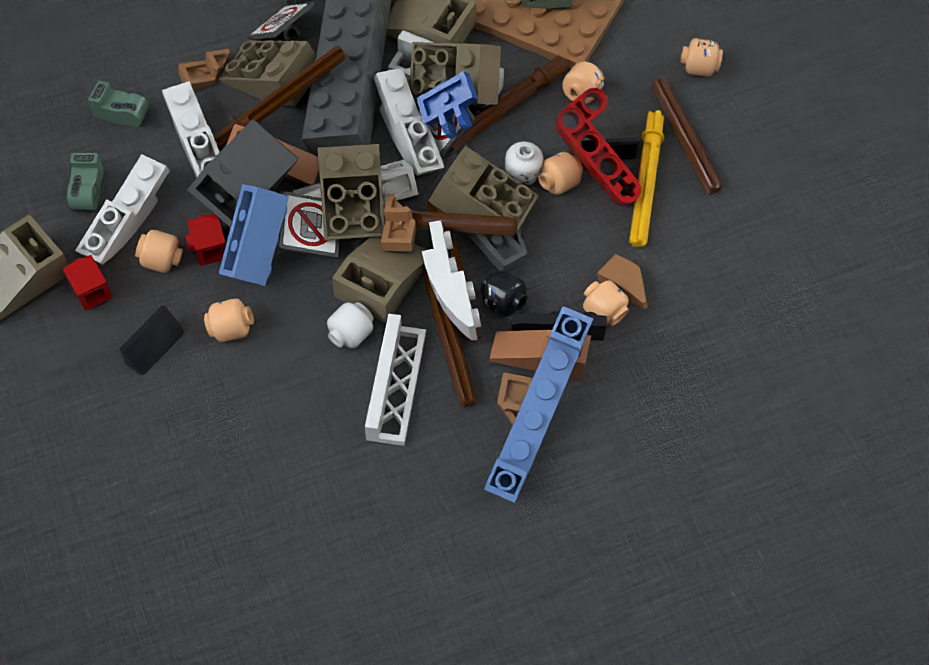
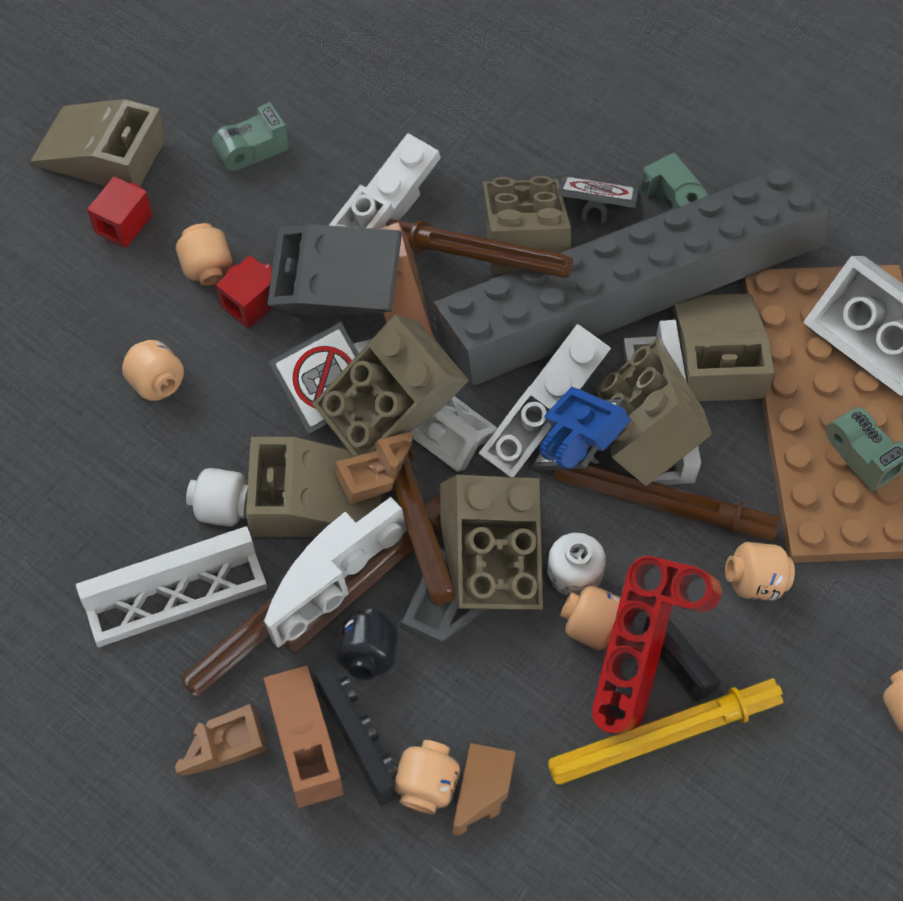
camera: 60 degrees right, 0 degrees up
(117, 105) = (372, 108): sand green leg -> none
(126, 213) = (225, 198): white slope -> none
(151, 341) = (87, 313): black slope -> none
(204, 72) = (479, 163): medium nougat slope -> none
(254, 235) = (262, 327): medium blue brick -> none
(539, 404) = (197, 772): medium blue slope -> none
(687, 136) = (774, 751): reddish brown axle -> none

